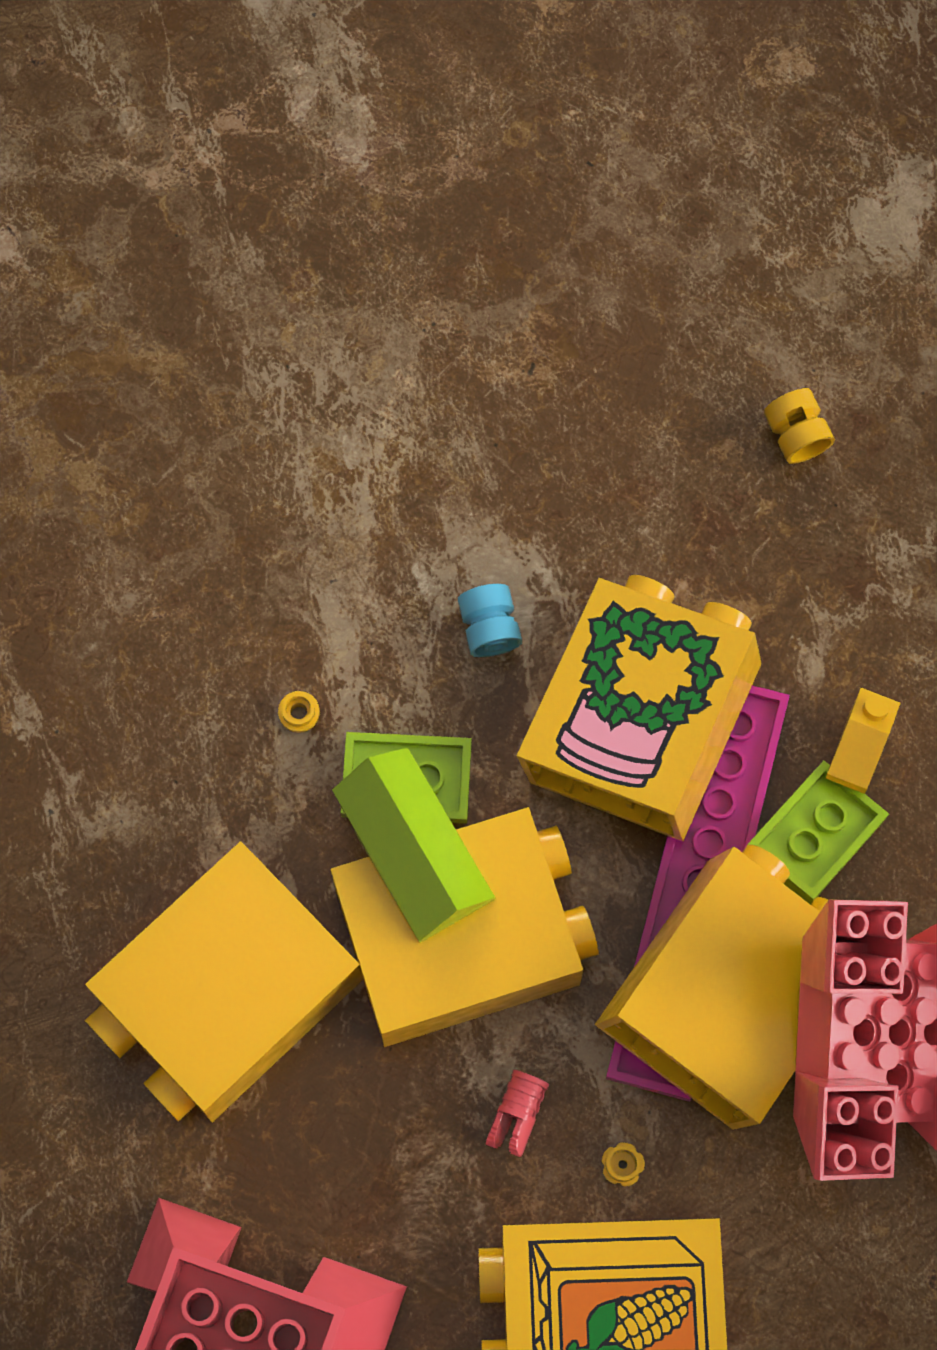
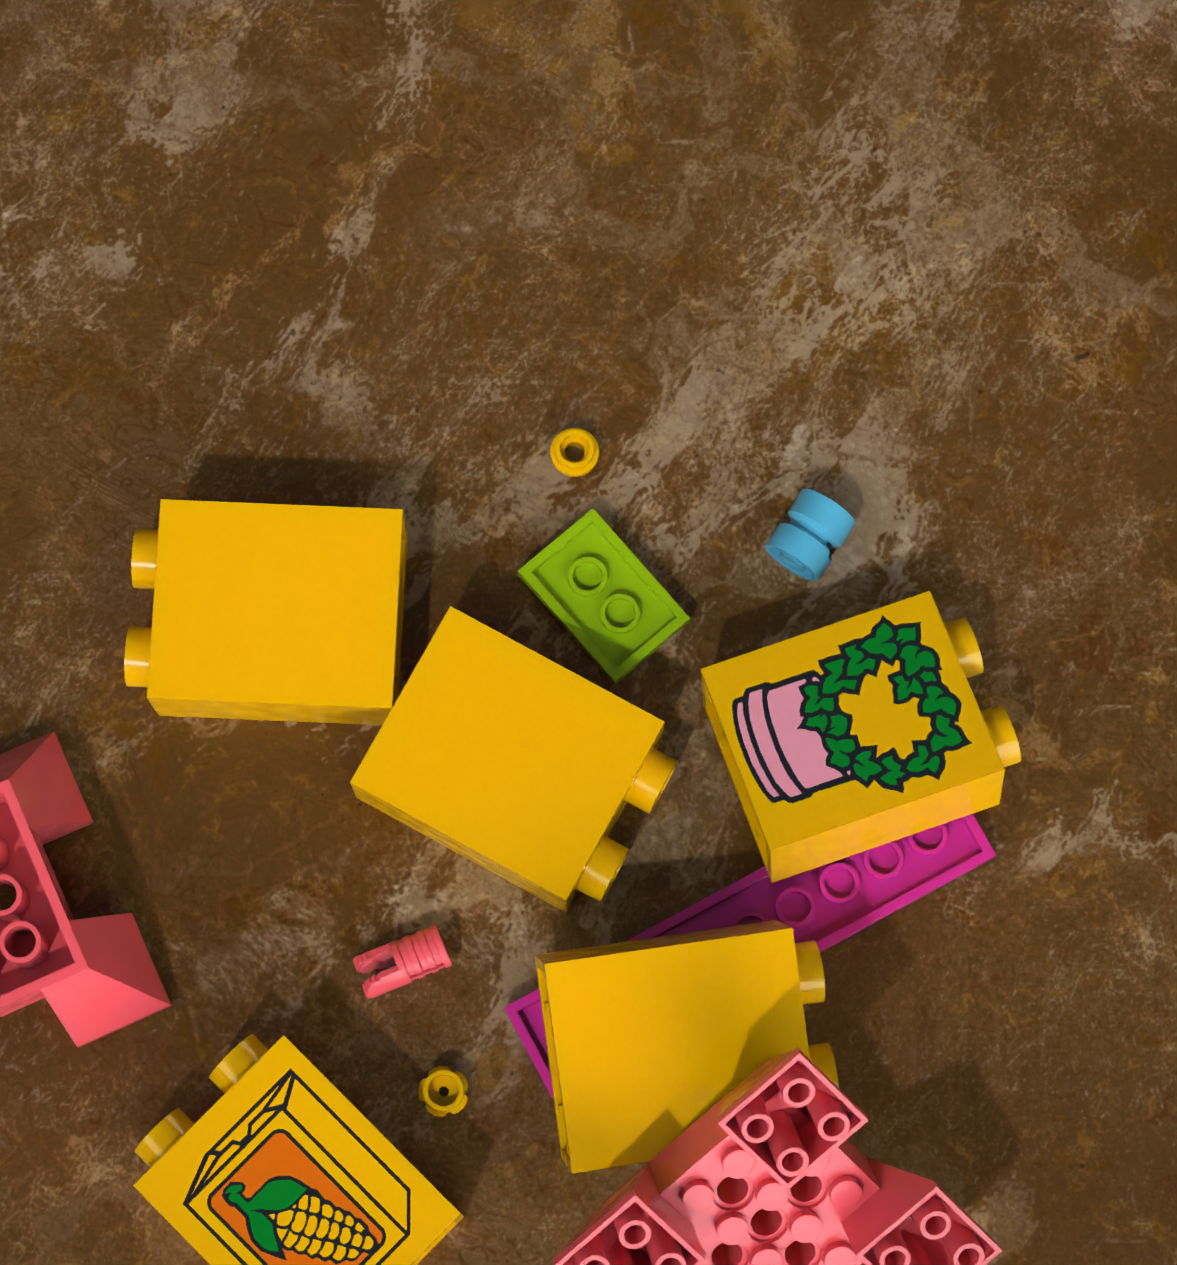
camera: 45 degrees right, 5 degrees up
(412, 842) = (536, 652): lime slope -> none
(819, 831) = (895, 992): lime plate -> none
(862, 740) = (1014, 956): yellow slope -> none

